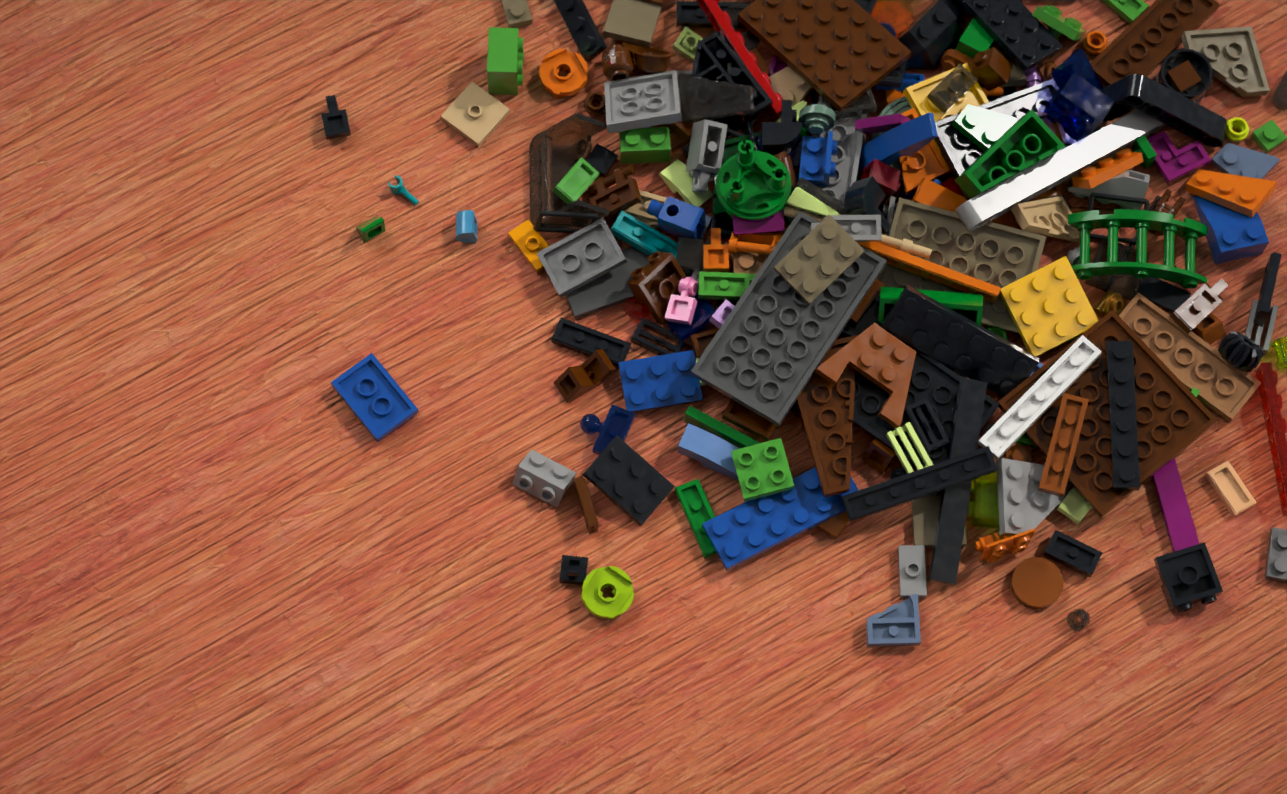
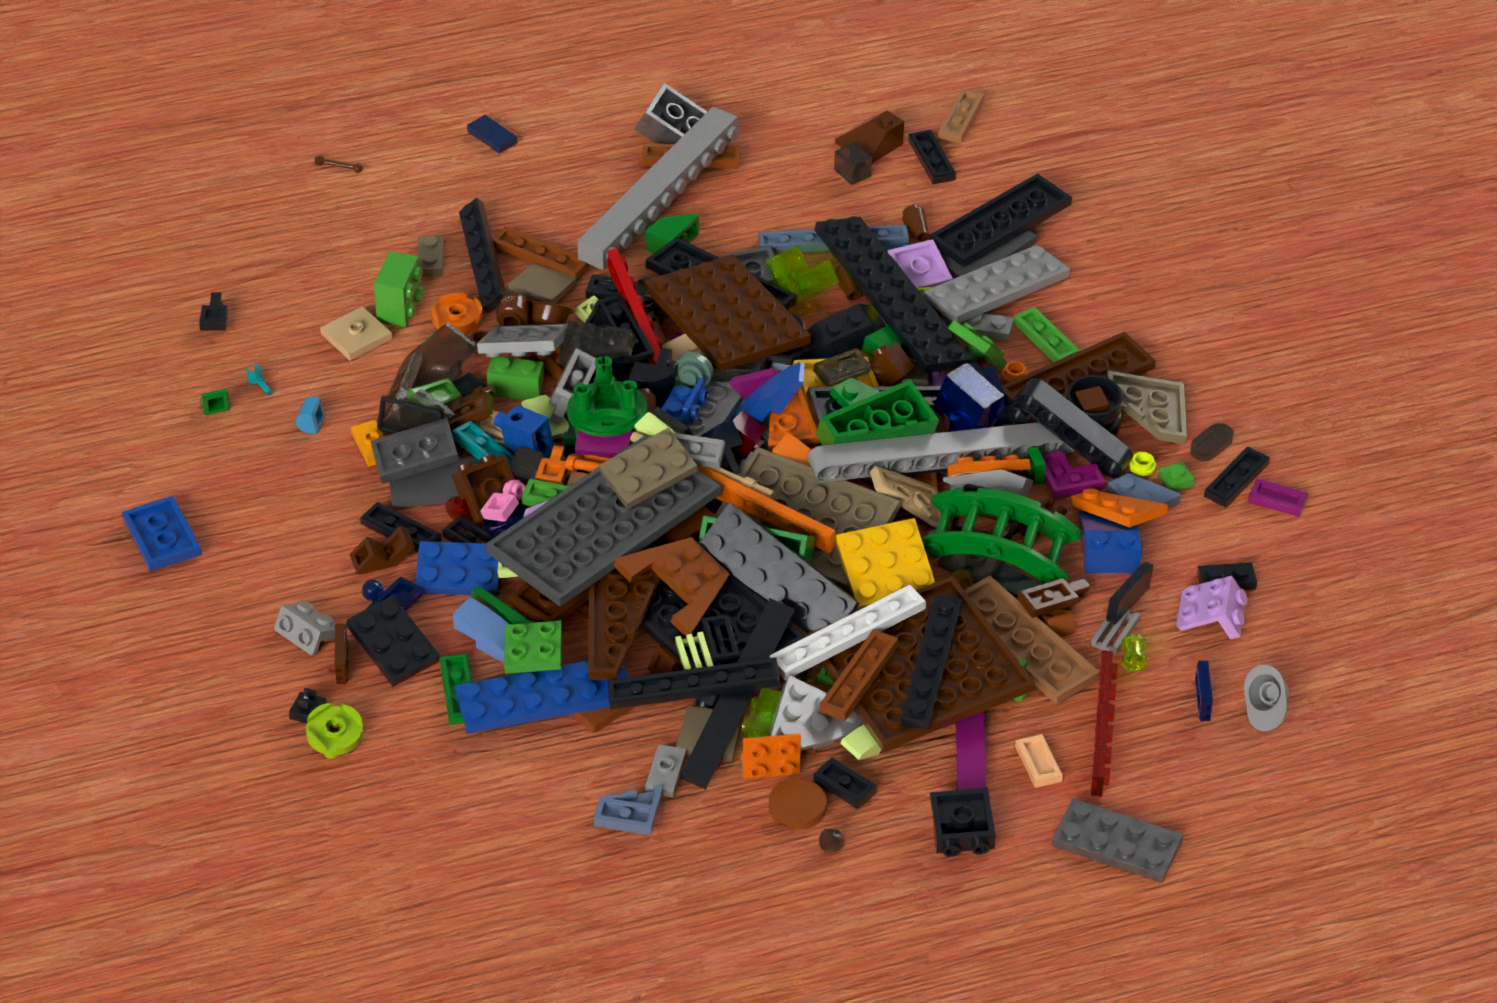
camera: 15 degrees right, 25 degrees down
(1240, 351) = (1082, 638): black gear -> none

